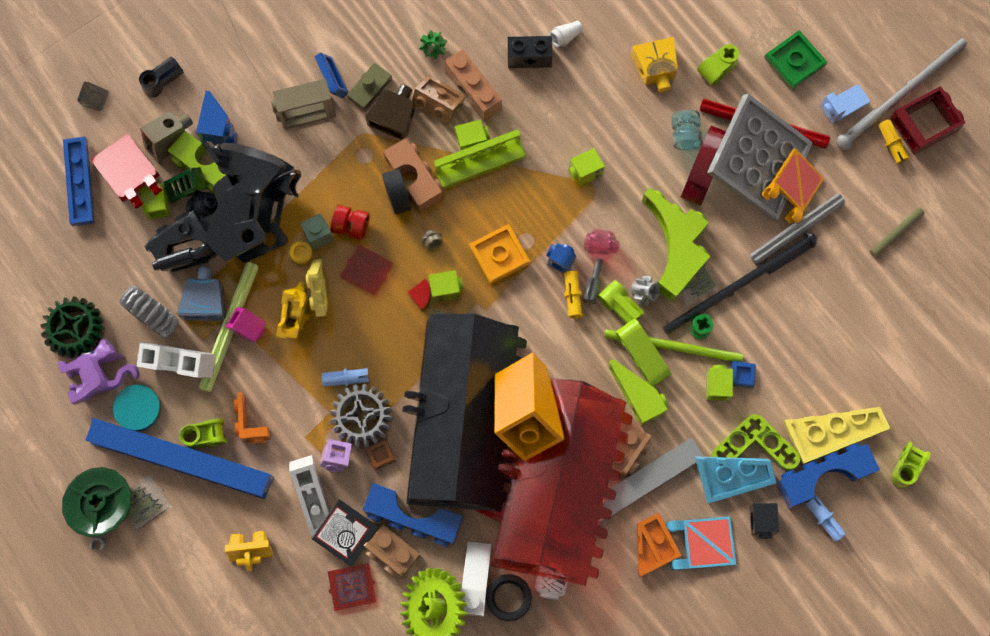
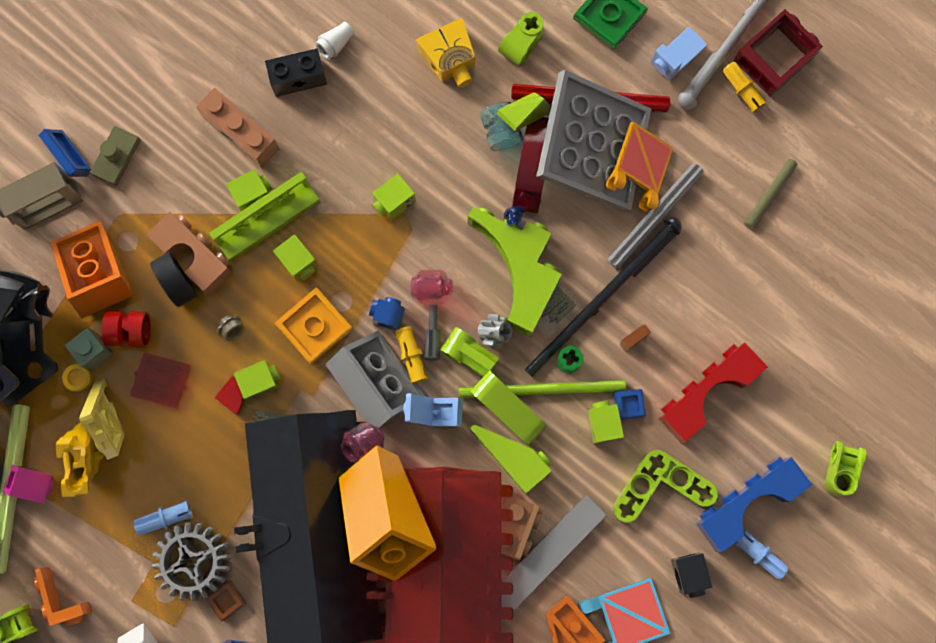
camera: 15 degrees left, 5 degrees up
(332, 170) = (90, 269): none -> orange slope
(335, 460) = (170, 619): lavender brick -> none
(393, 113) = (149, 182): dark brown torso -> none
(429, 49) = (179, 88): green gear -> none
(437, 99) = (199, 153): medium nougat bracket -> none
(497, 197) = (296, 258): none -> lime brick
(518, 348) = (361, 440): none -> clear pink head
(539, 308) = (373, 379): none -> light grey slope
(581, 343) = (433, 411): none -> light blue bracket
(681, 201) = (514, 215): none -> clear blue arm
(708, 121) = (524, 111): none -> lime slope
(733, 476) = (644, 530): medium azure wing -> none
(759, 321) = (635, 337): none -> dark orange tile
(828, 433) = (744, 452): light yellow wing -> none
(838, 365) = (686, 415): none -> red arch

